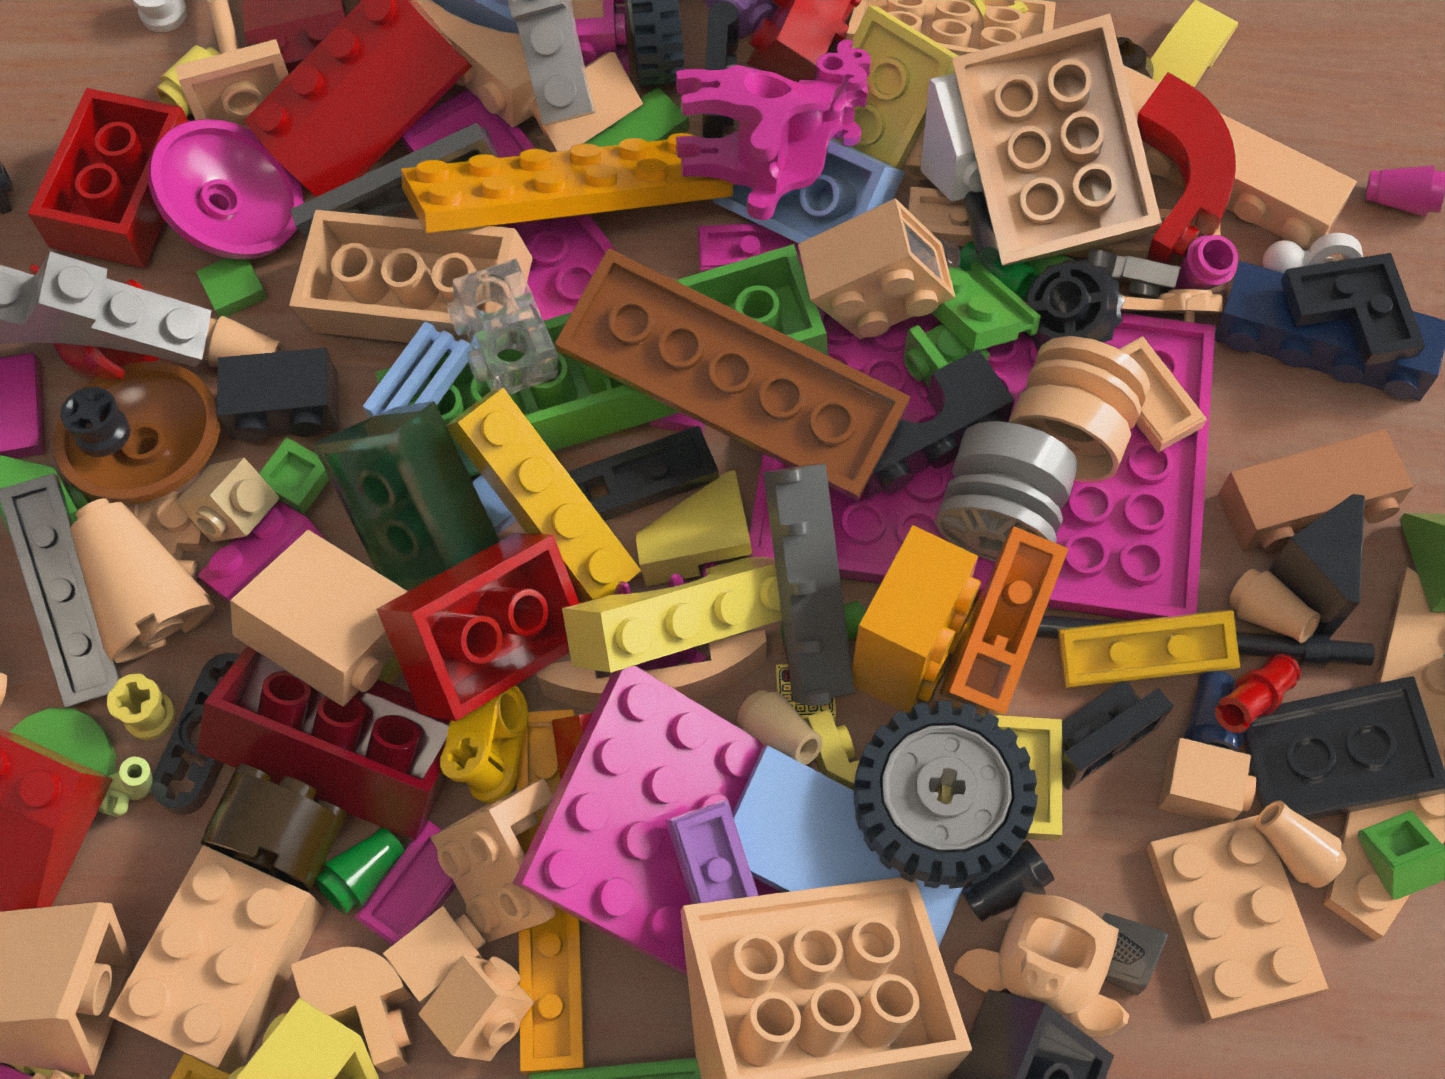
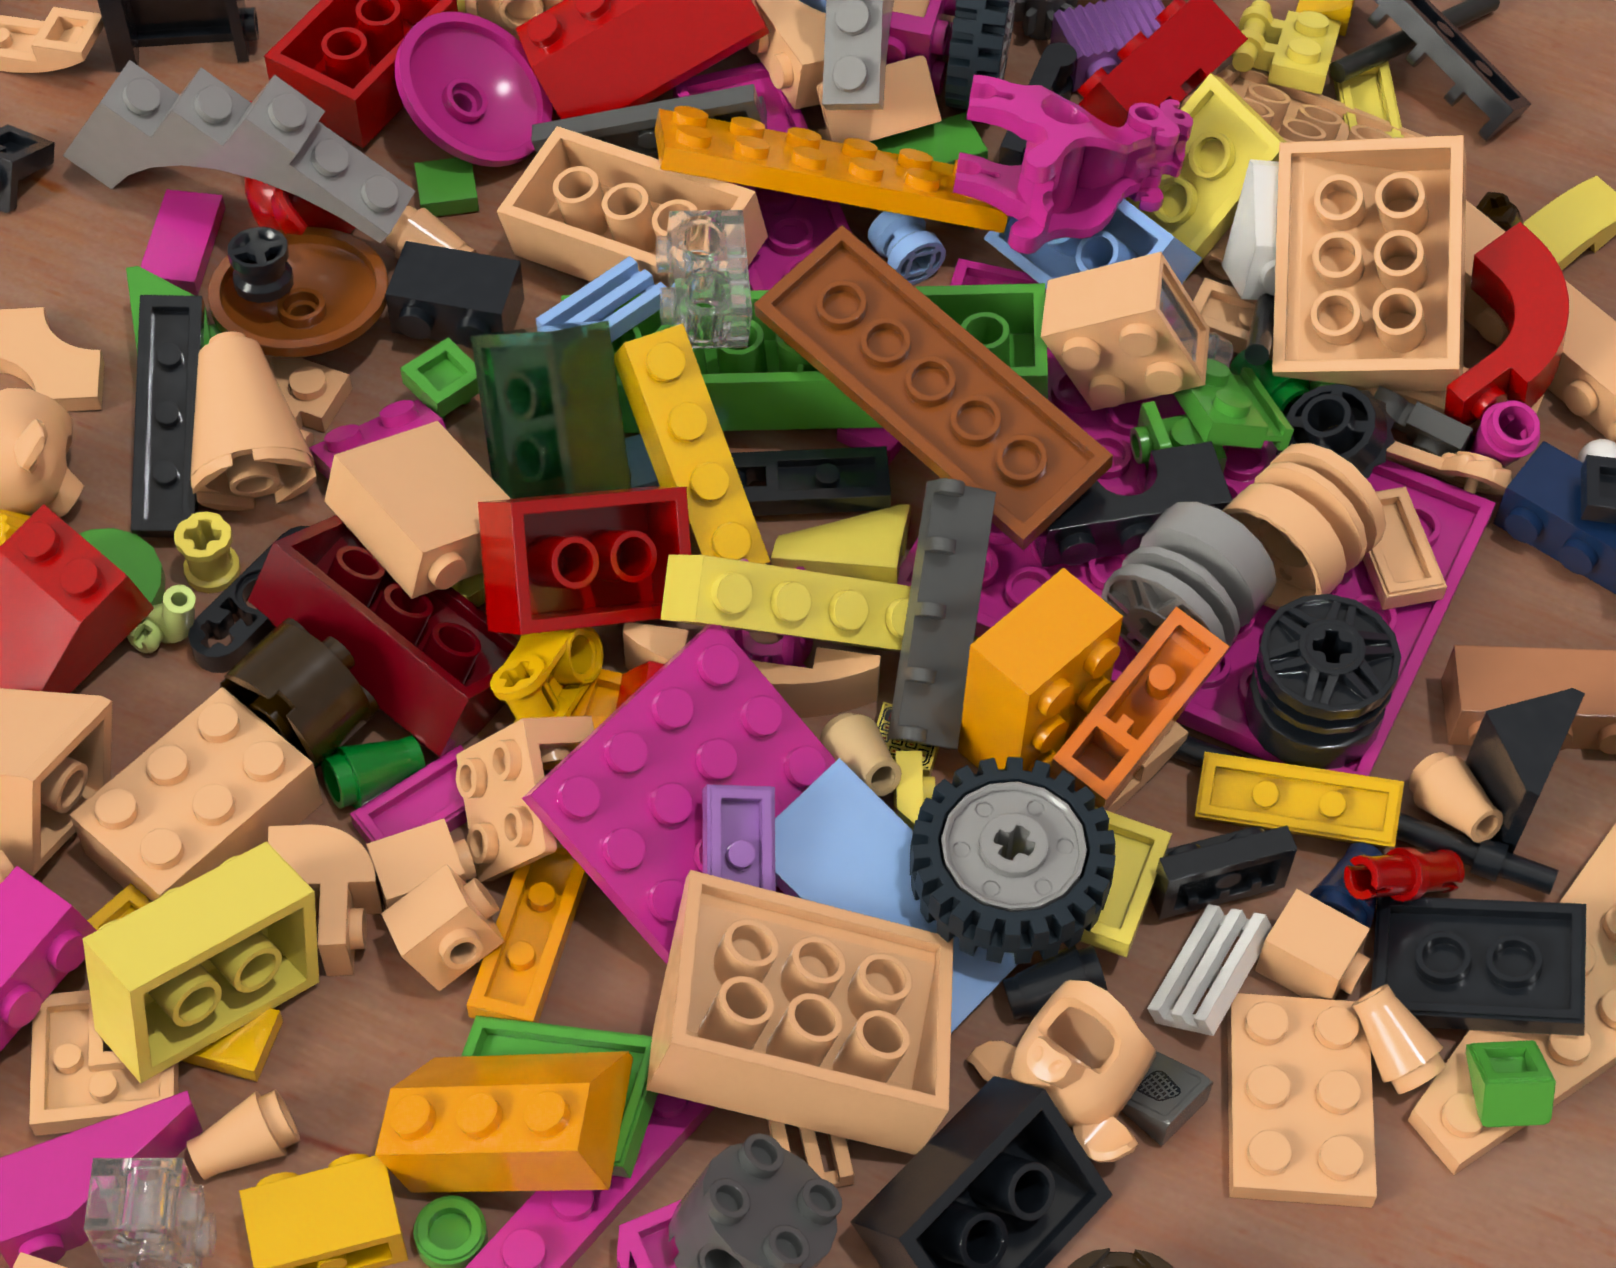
camera: 15 degrees right, 10 degrees down
(228, 500) = (366, 379): tan brick -> none
(653, 229) = (907, 245): none -> light blue wheel
(1106, 820) = (1201, 968): none -> white tile
(1126, 567) = (1322, 681): none -> black wheel

